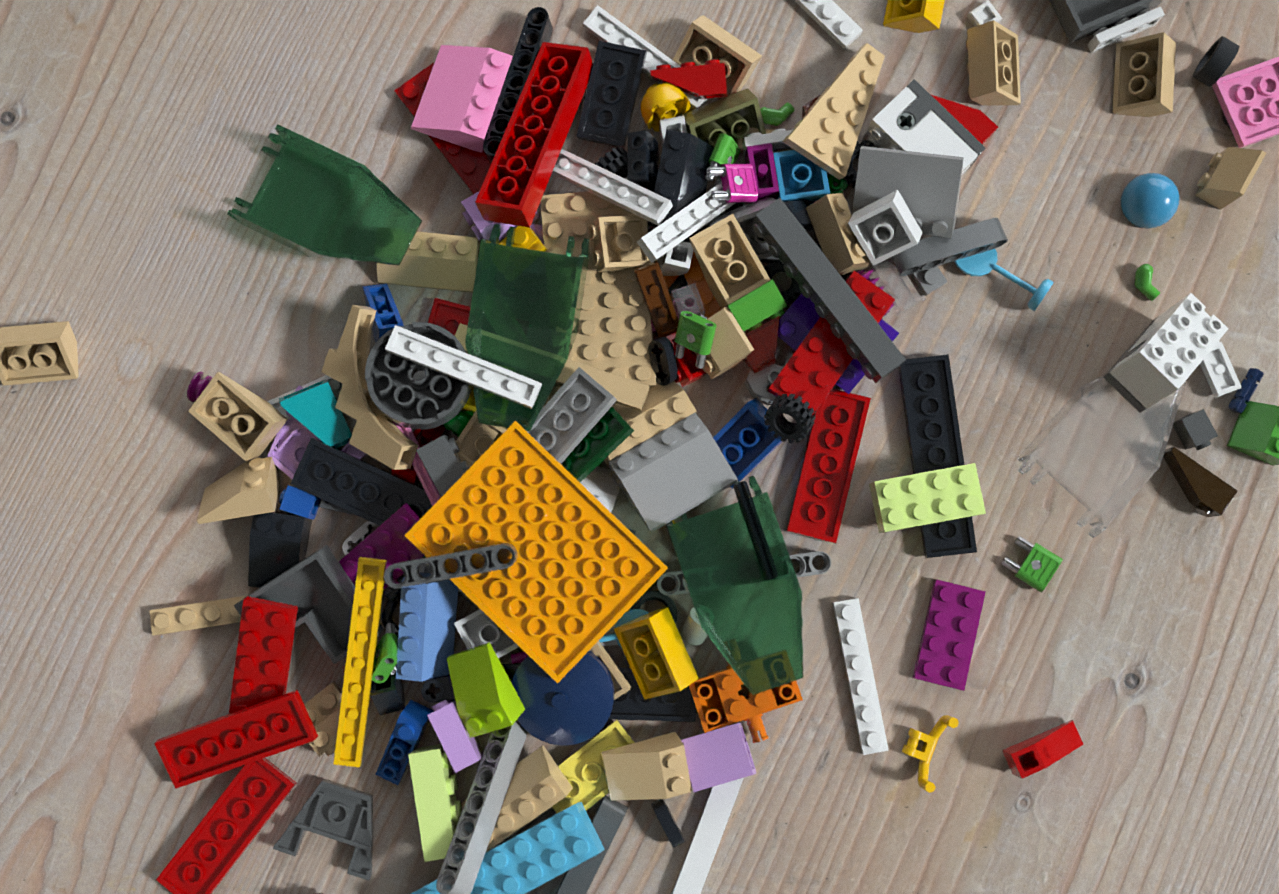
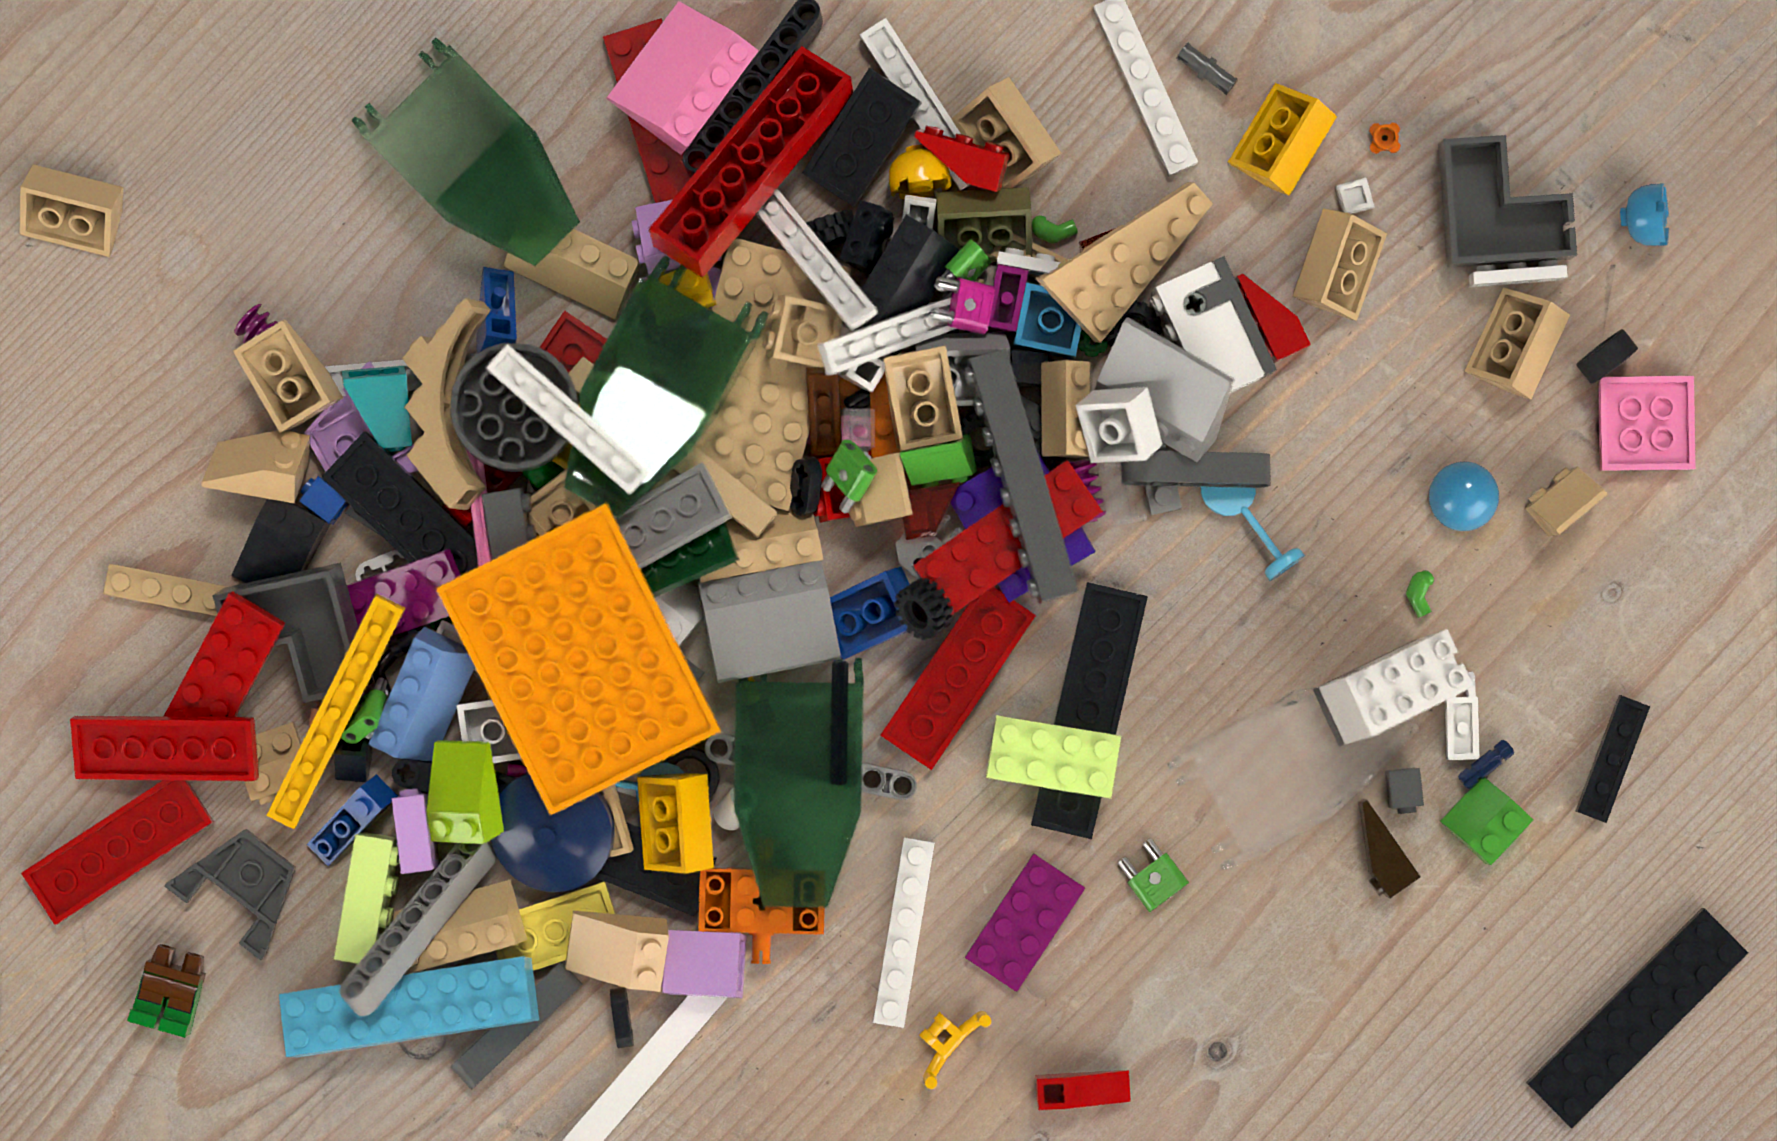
camera: 20 degrees right, 5 degrees up
(438, 568) = (462, 646): dark grey beam -> none

